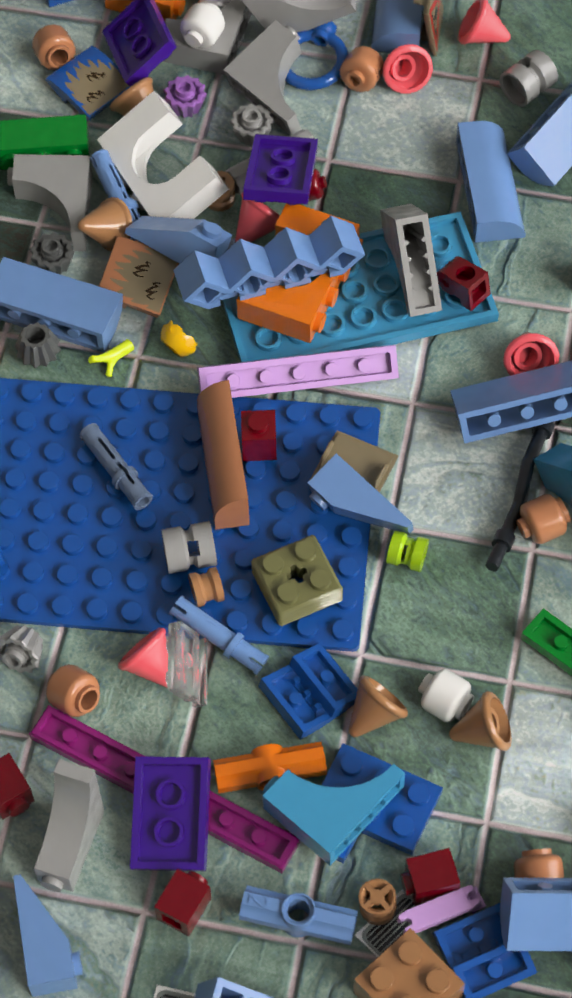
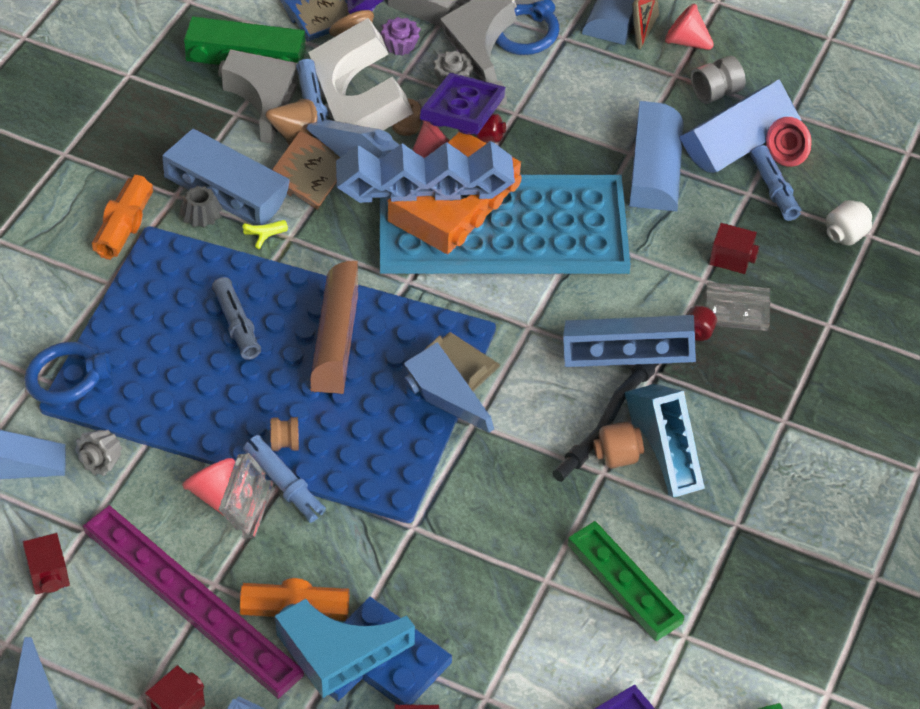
camera: 10 degrees right, 10 degrees down
(52, 252) = (239, 135): dark grey piece -> none
(71, 826) = (94, 607): light grey arch -> none
(73, 690) = (134, 496): nougat head -> none
(170, 814) = (188, 618): dark purple plate -> none
(176, 547) = (267, 396): light grey wheel -> none
(177, 340) = (327, 229): yellow plate -> none
(258, 435) = (374, 318): dark red brick -> none
(285, 595) = (370, 446): olive brick -> none
(303, 371) = (436, 276): lavender plate -> none
(309, 690) = (354, 546): blue slope -> none
(362, 69) = (568, 41): nougat head -> none
(374, 707) = (408, 571): medium nougat hat -> none
(407, 69) = (608, 50): coral hat -> none
(410, 241) = (561, 201): light grey arch -> none
(415, 551) = (482, 445): lime wheel -> none
(446, 695) = (480, 576): white head -> none
(465, 282) = (605, 230): dark red leg -> none
(484, 724) = (509, 608): medium nougat hat -> none
(530, 353) = (648, 300): coral hat -> none

